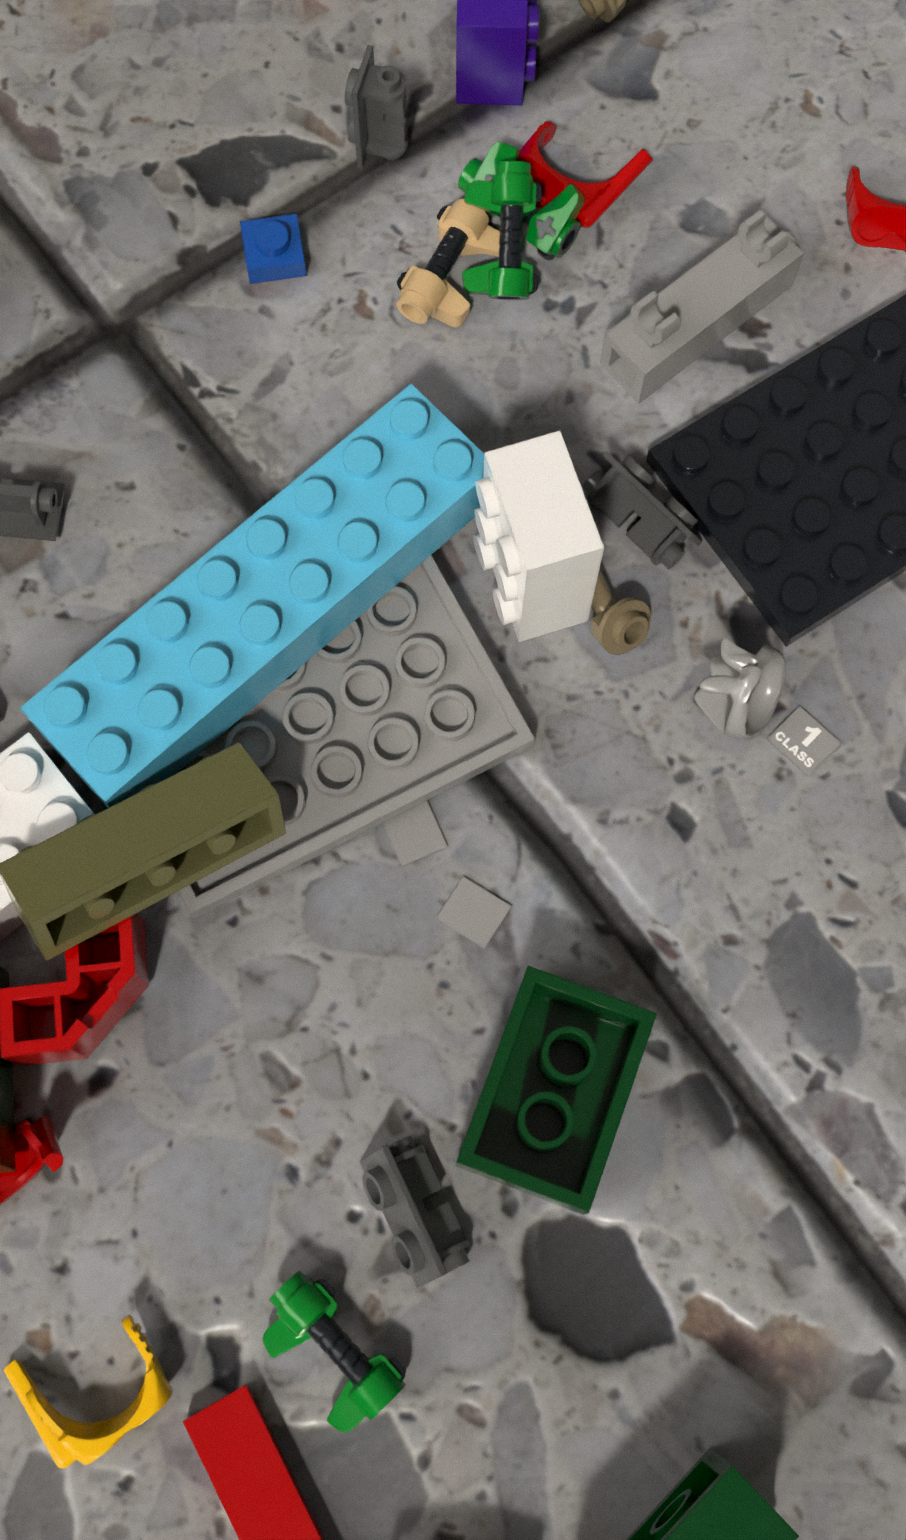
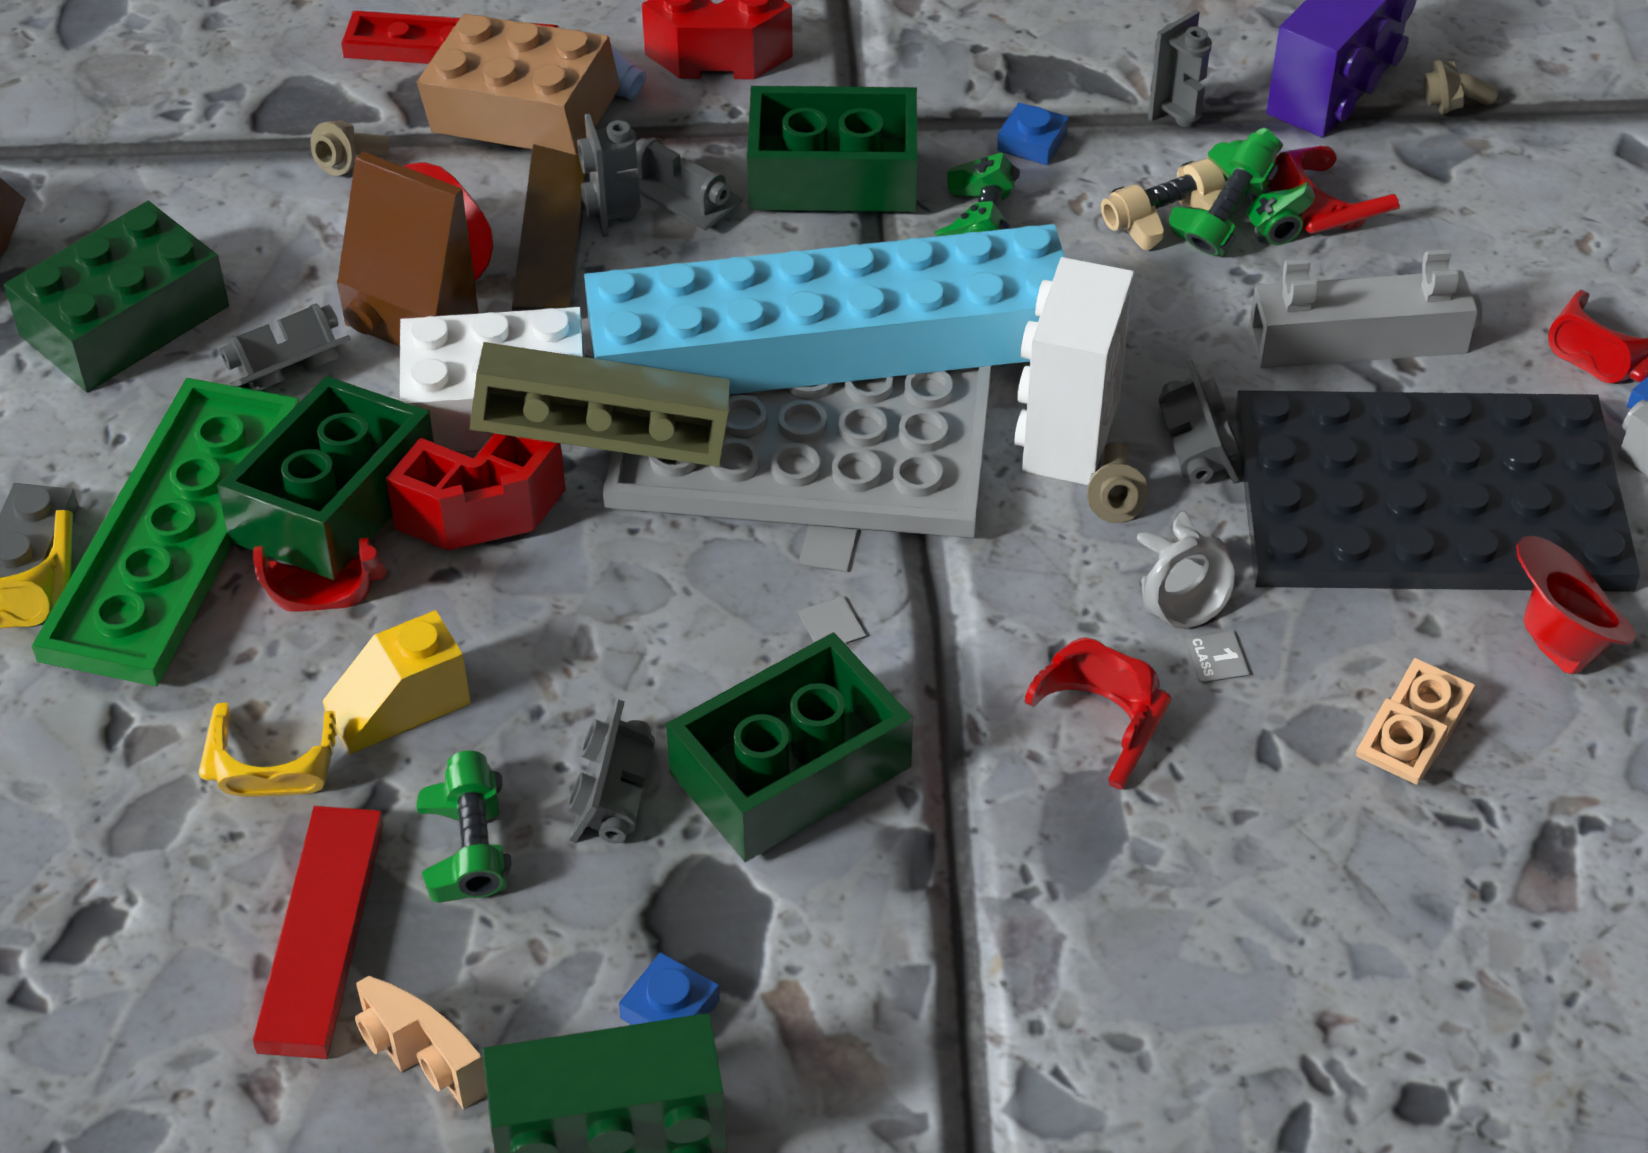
camera: 35 degrees right, 25 degrees down
(118, 384) = (832, 148): none -> dark green brick
(160, 1247) = (399, 683): none -> yellow slope
(308, 391) = (990, 180): none -> green piece
(620, 1397) = (668, 992): none -> blue plate
(773, 827) = (1122, 679): none -> red helmet

